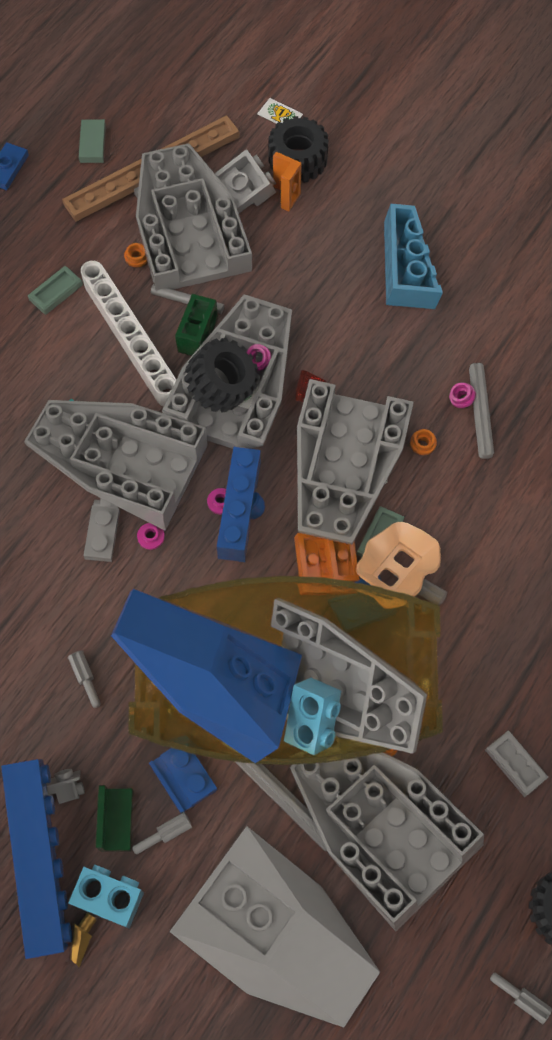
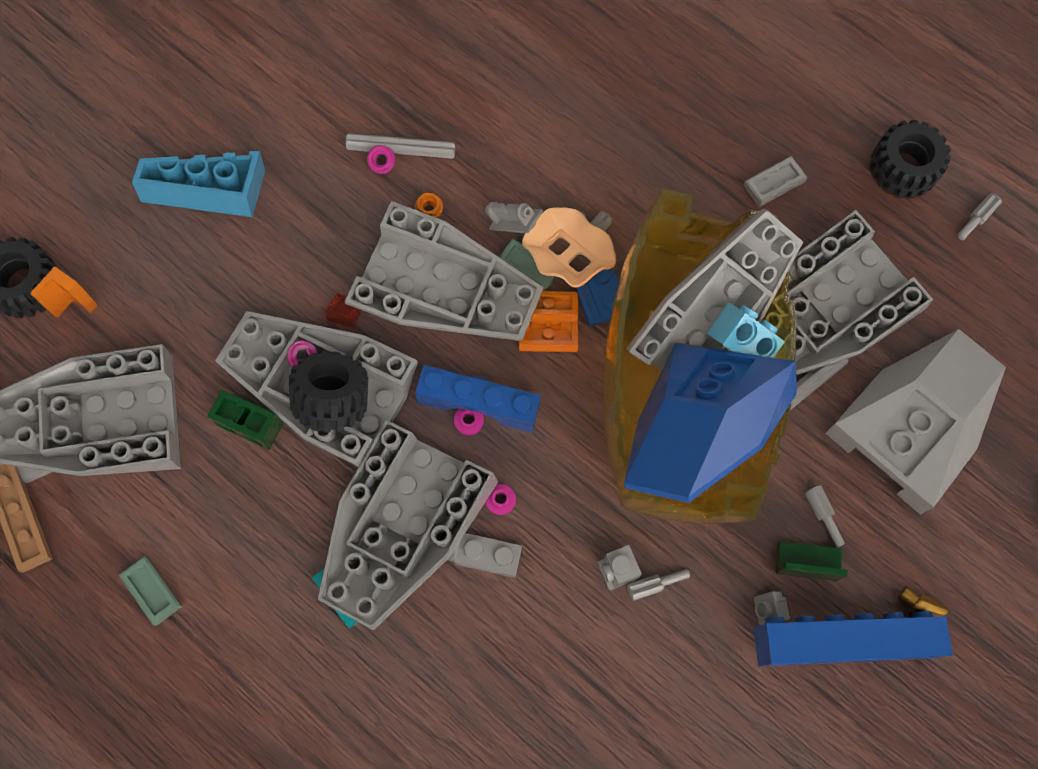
camera: 85 degrees left, 5 degrees up
(95, 641) = (619, 568): none -> light grey brick
(103, 904) = (895, 578): medium azure brick -> none
(124, 323) = (219, 502): white beam -> none
(133, 250) = (115, 483): orange plate -> none
(179, 296) = (194, 436): light grey bar -> none
(183, 778) = (783, 490): blue plate -> none
(246, 180) = (46, 341): light grey plate -> none
(421, 510) = (512, 217): none -> light grey hinge

